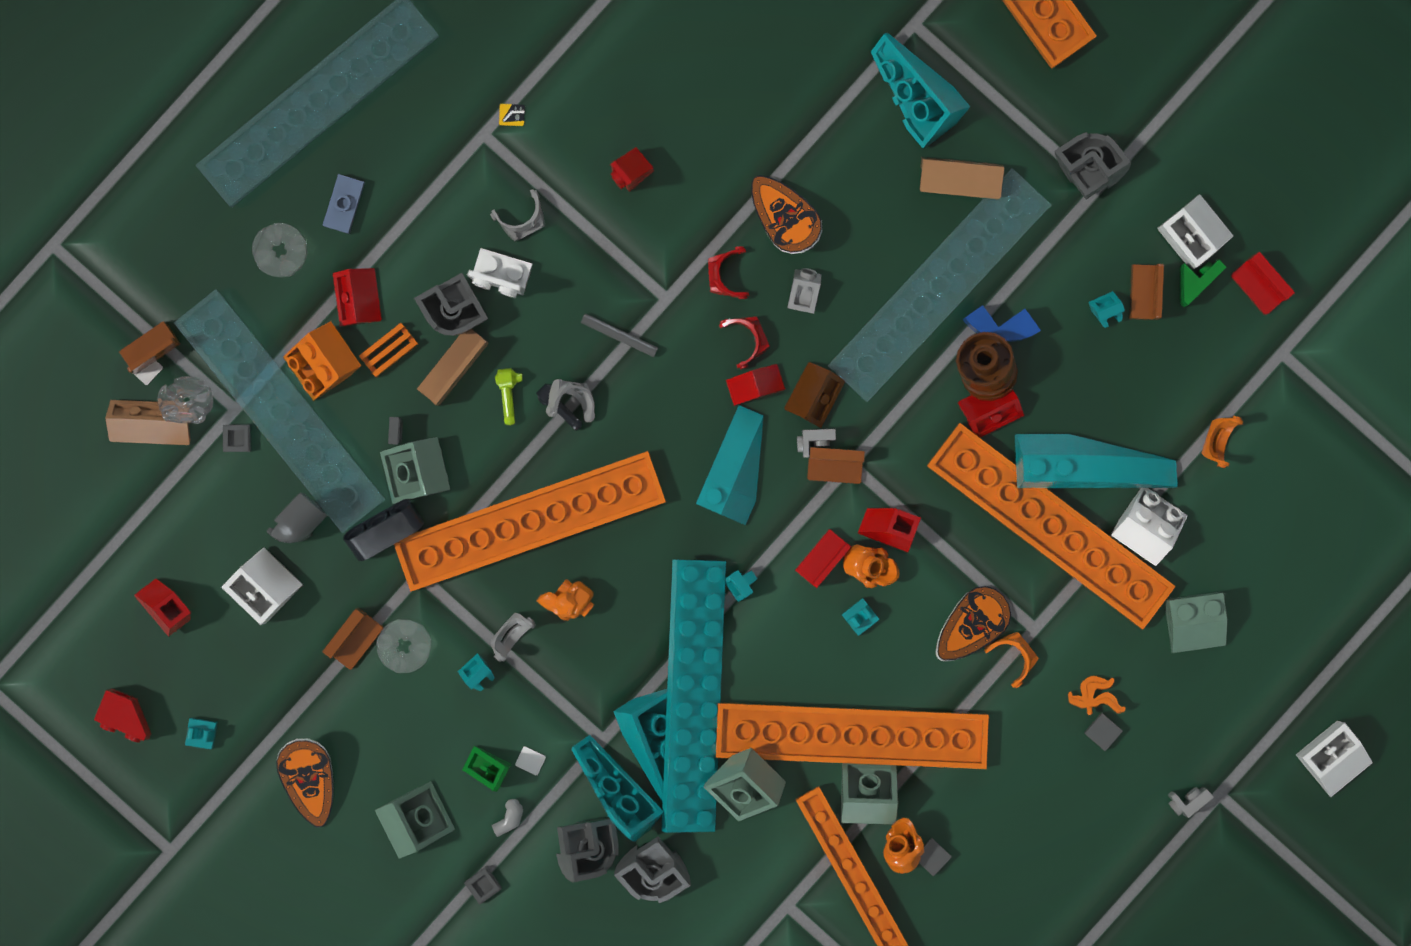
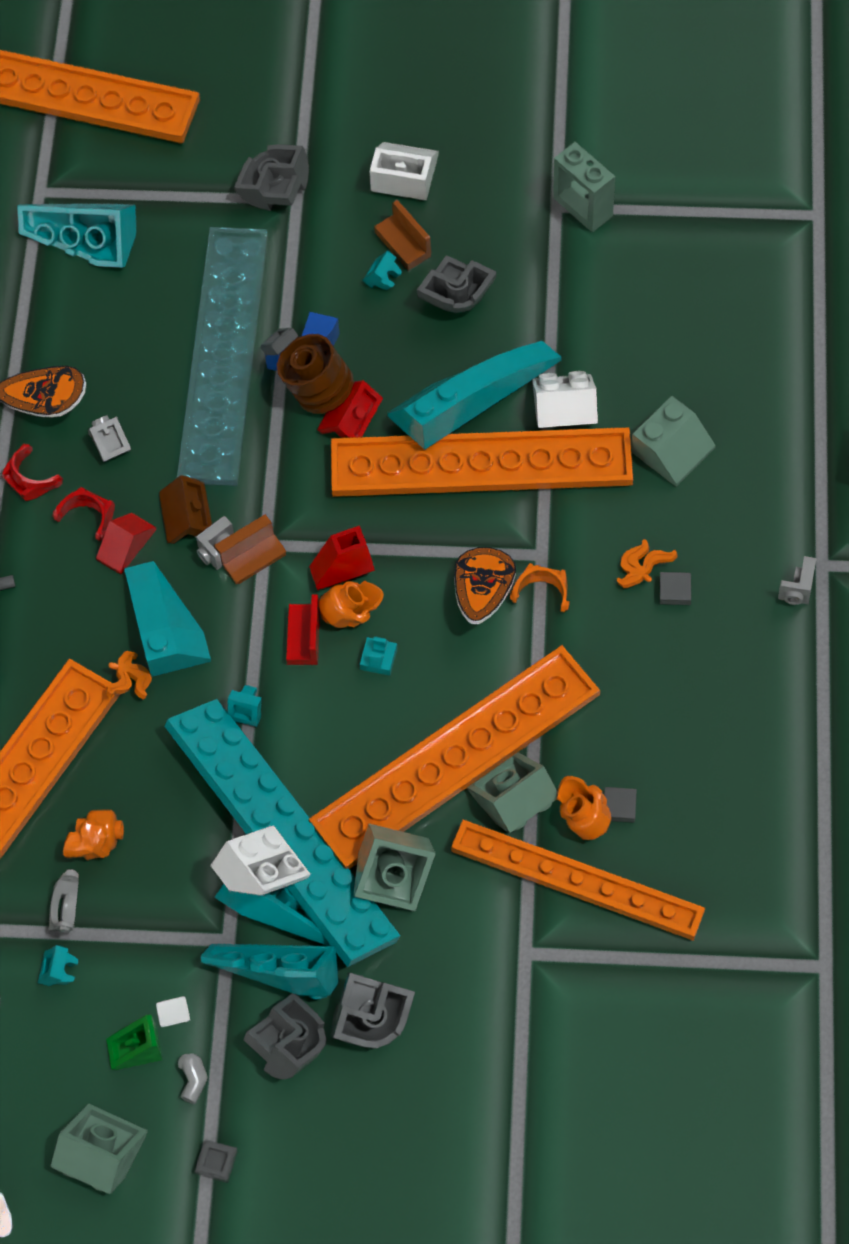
camera: 35 degrees left, 25 degrees down
(653, 728) = (258, 863): none -> white slope
(681, 489) = (127, 670): none -> orange piece
(961, 178) = (172, 260): medium nougat panel -> none
(980, 322) = (278, 341): none -> dark grey tile
(1149, 371) = (456, 285): none -> dark grey brick
(1192, 285) = (435, 203): green slope -> none
(1216, 451) = (558, 285): orange helmet -> none
(1262, 283) = (493, 165): red panel -> none
(1304, 370) = (583, 189): none -> sand green window

